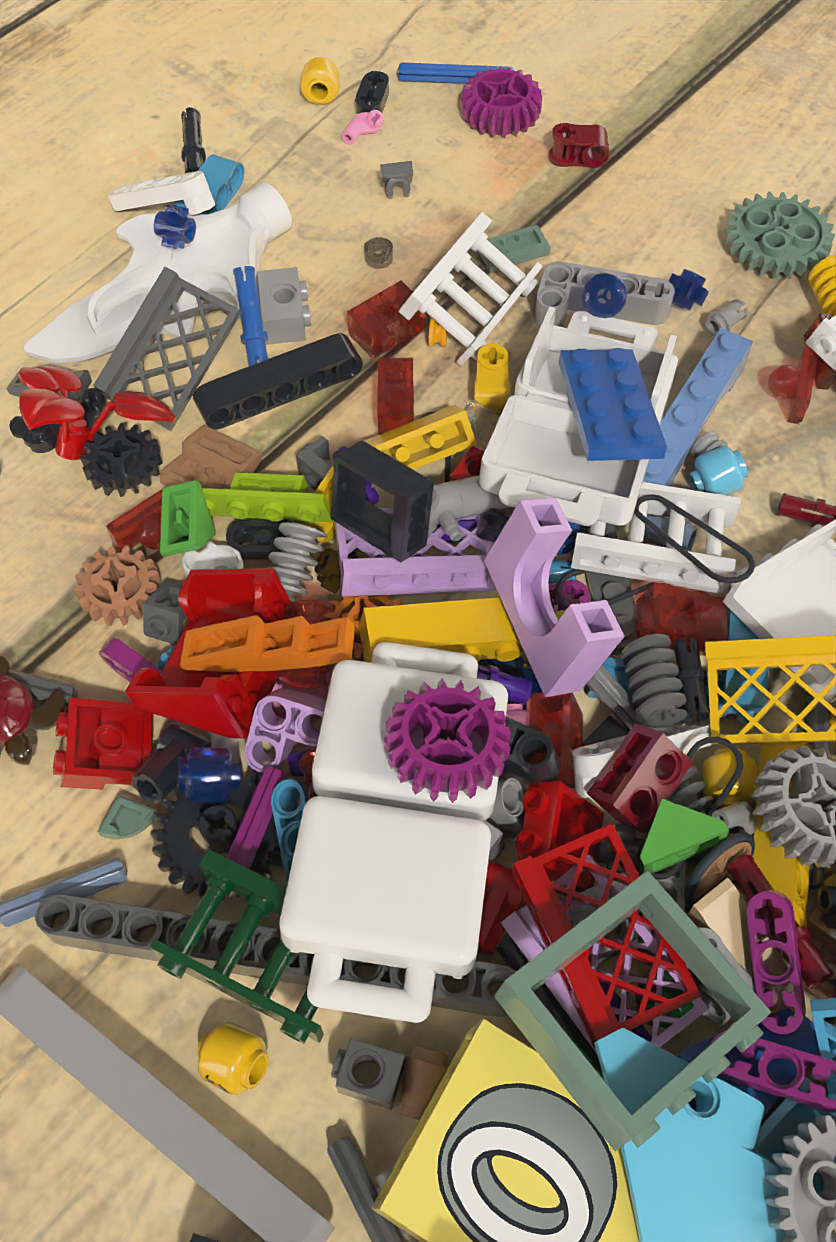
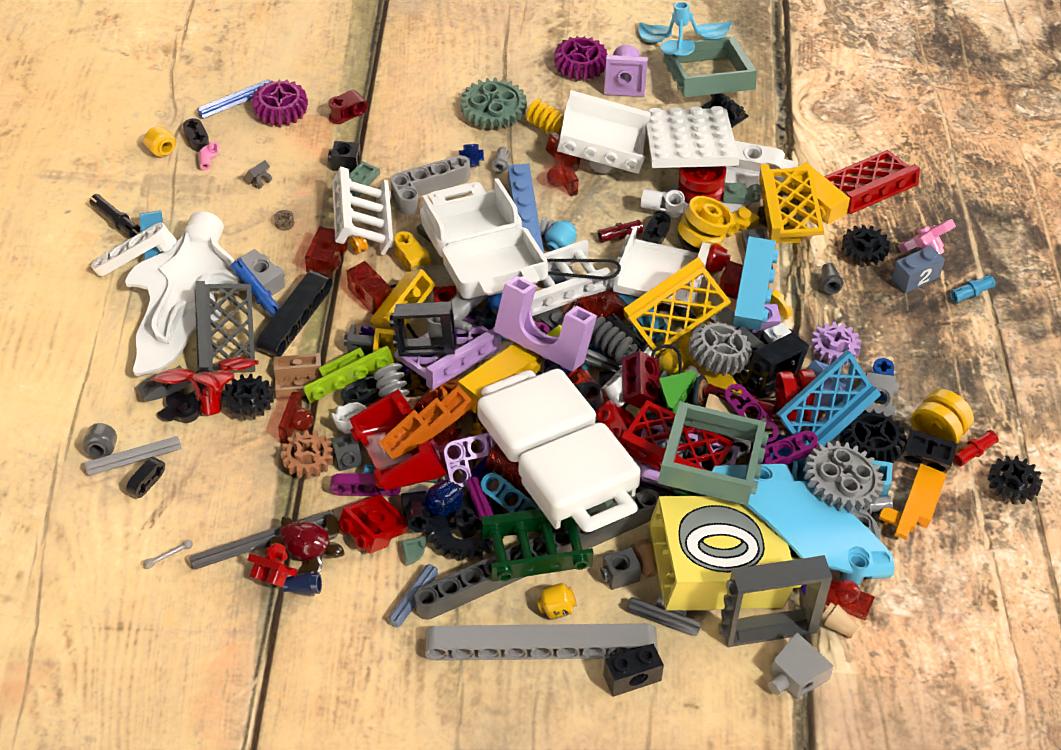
camera: 40 degrees left, 10 degrees down
(174, 227) = (173, 260): clear blue gear -> none
(184, 519) = (318, 400): bright green slope -> none
(446, 763) = (559, 397): magenta gear -> none
(521, 206) = (344, 155): none -> black brick
(610, 283) = (432, 181): clear blue head -> none
(611, 405) = (495, 225): blue plate -> none

